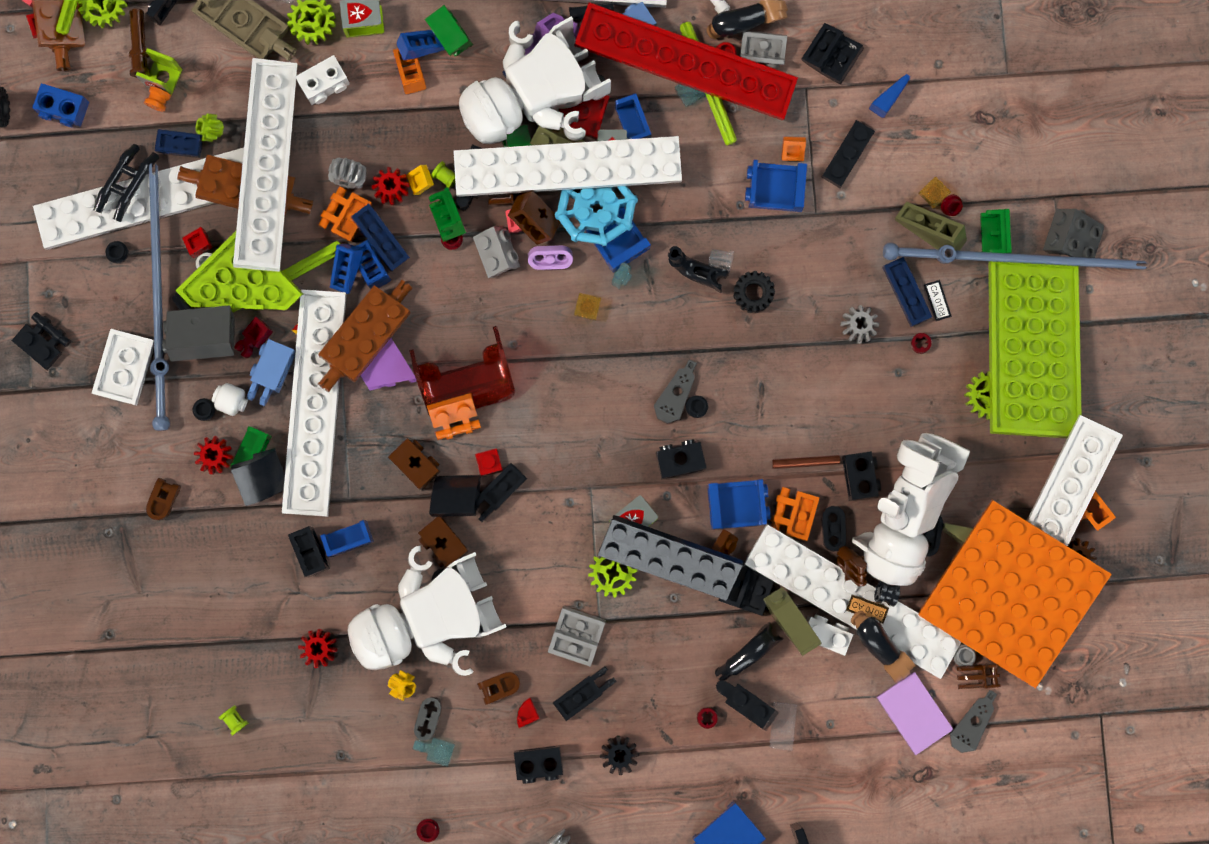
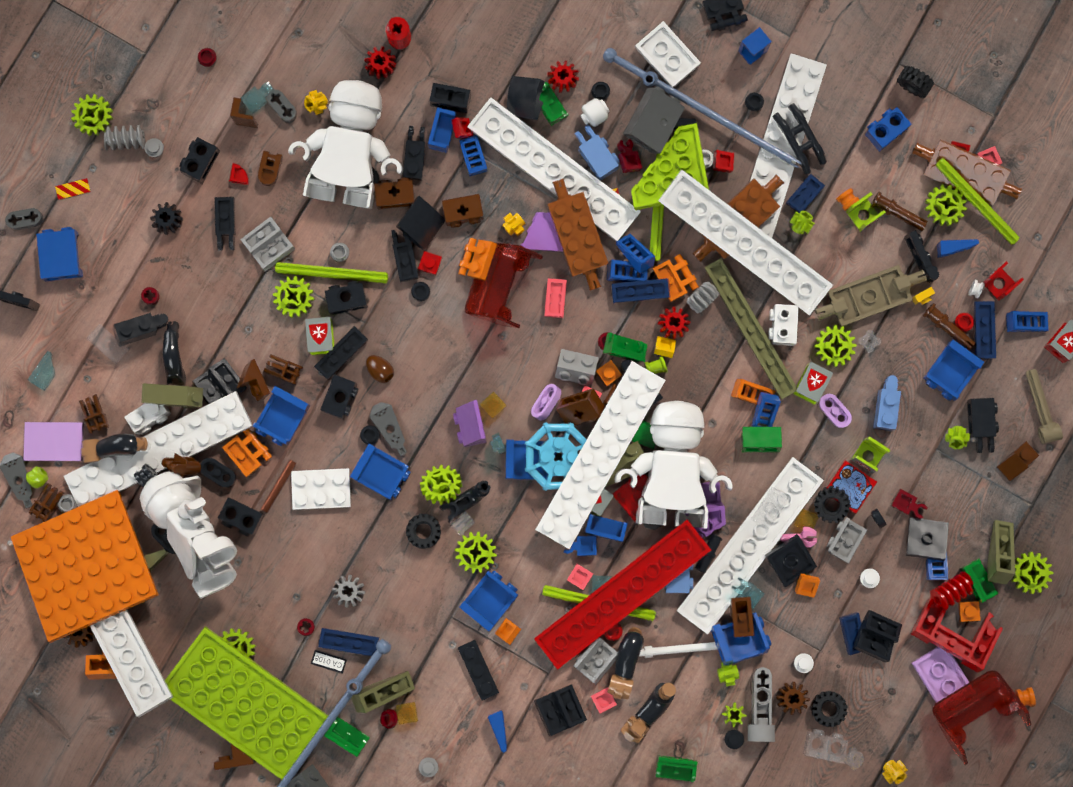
camera: 130 degrees right, 0 degrees up
(58, 284) = (754, 46): none -> blue panel
(160, 508) = (551, 17): reddish brown plate -> none
(268, 652) = (398, 33): none -> red piece
(332, 522) = (460, 127): none -> red plate
(346, 487) = (478, 169): none -> blue slope
(347, 110) = (751, 329): none -> olive plate
(389, 550) = (414, 155): none -> black hinge
(395, 404) = (513, 224): none -> yellow gear
(442, 316) = (555, 298): none -> coral plate
(466, 754) = (239, 116): none -> reddish brown panel
(481, 217) = (608, 373): none -> orange plate
(523, 452) = (420, 291): none -> black tile
(537, 558) = (339, 252): none -> light grey plate
(556, 819) = (154, 147): none -> light grey plate
(563, 553) = (331, 272): none -> lime axle
(573, 507) = (357, 301): none -> black brick
(621, 311) = (470, 424): none -> medium lavender slope
(626, 439) = (379, 368): none -> reddish brown animal
(632, 486) = (341, 353): none -> black plate
(664, 128) = (585, 546): none -> blue plate
(670, 557) = (274, 341): plate -> none
(687, 519) = (285, 369): none -> reddish brown arm
(695, 116) = (580, 576): none -> coral plate
(699, 312) = (439, 482): none -> lime gear
(725, 370) = (380, 472): none -> blue panel
(734, 216) = (467, 551): none -> lime gear
(780, 418) = (321, 489): none -> white plate
(796, 19) = (603, 700): none -> coral plate
(854, 771) = (43, 372): none -> clear light blue tile
(862, 689) = (93, 414): none -> reddish brown arm
(869, 608) = (145, 457): clear orange sticker -> none
(960, 703) = (37, 477): none -> lime piece
(970, 139) = (428, 767): none -> light grey plate
(1091, 321) = (239, 759): none -> reddish brown slope

